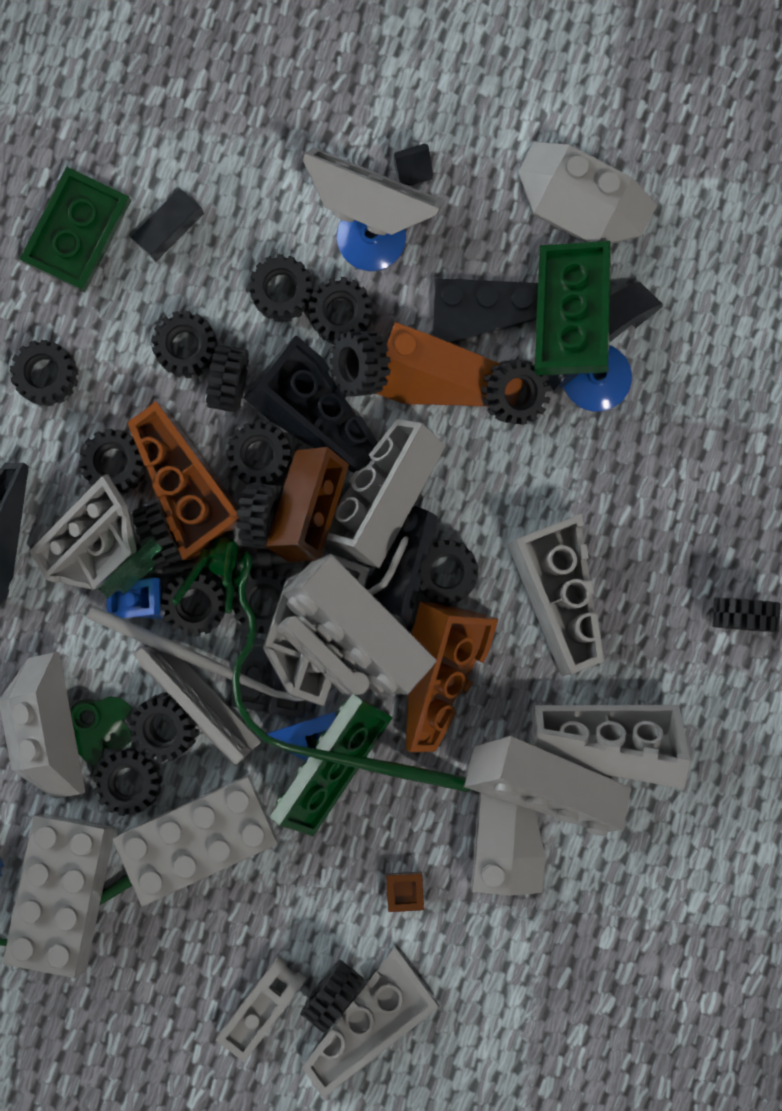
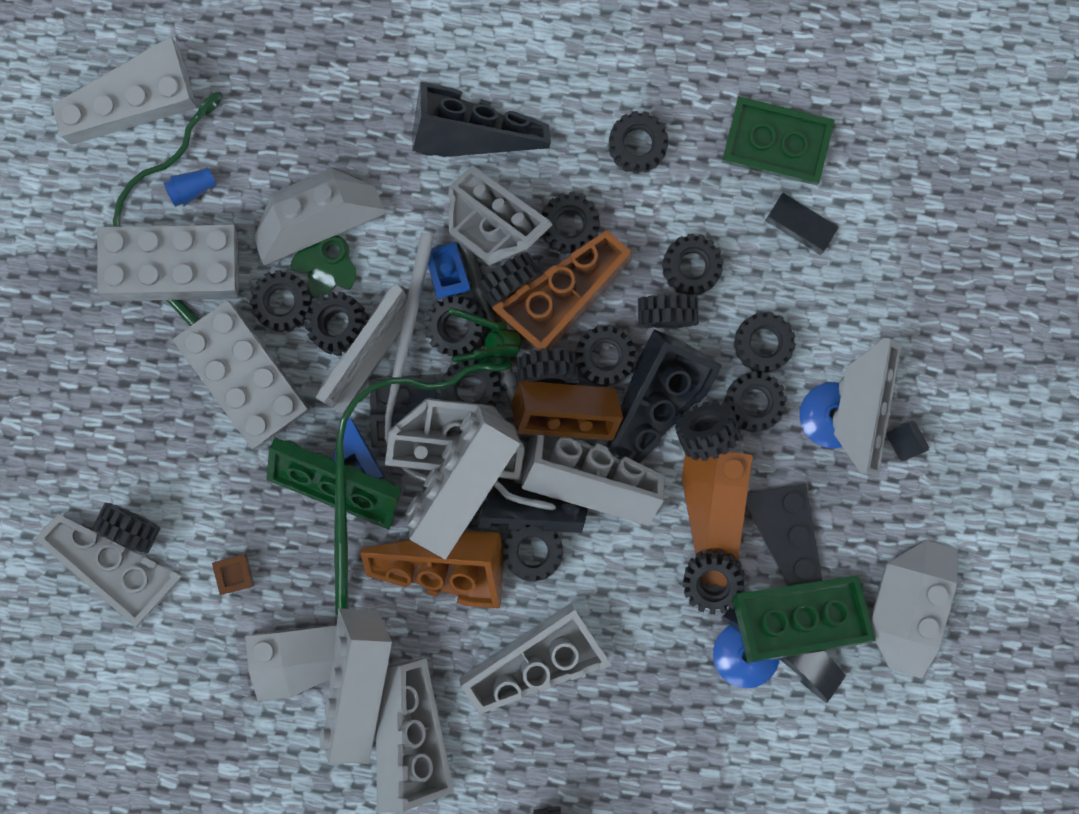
camera: 75 degrees right, 0 degrees up
(131, 570) = (471, 264): clear green plate -> none
(260, 1010) = (101, 465): light grey plate -> none
(323, 657) = (428, 455): light grey plate -> none

